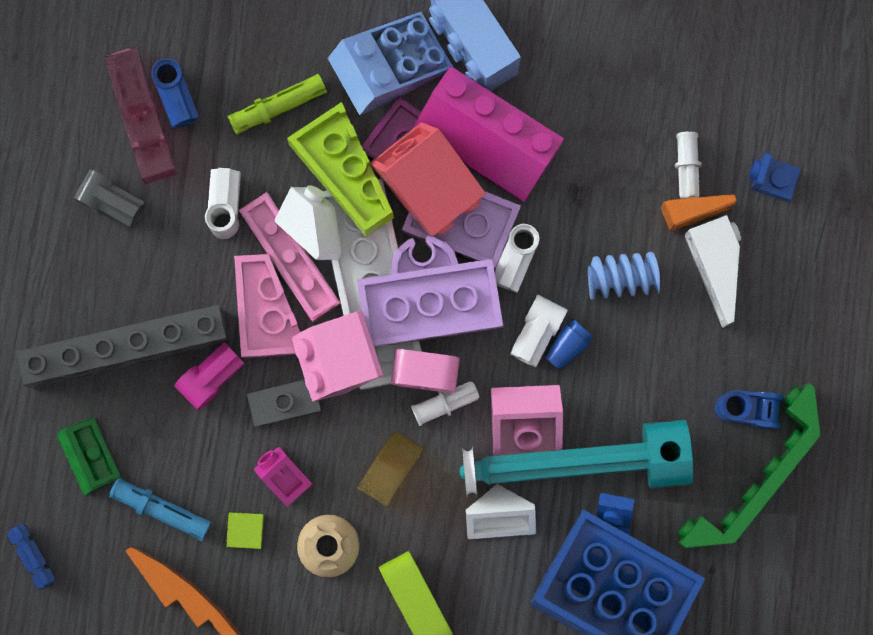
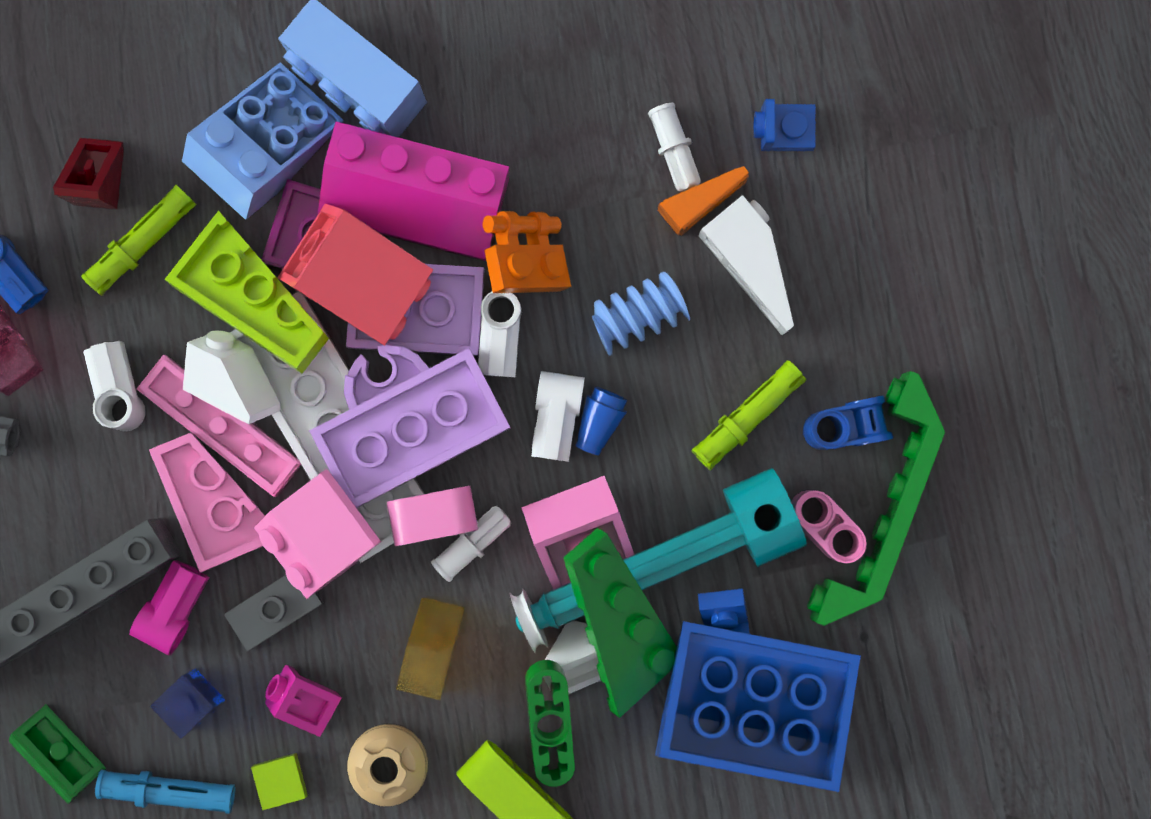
camera: 15 degrees left, 5 degrees up
(199, 449) = (187, 703): none -> clear blue brick
(260, 47) = (92, 174): none -> dark red slope
(463, 578) = (537, 710): none -> green beam
(538, 496) = (621, 623): none -> green wing
(554, 215) = (530, 266): none -> orange plate
(666, 383) = (743, 420): none -> lime pin
(716, 474) = (831, 522): none -> bright pink beam

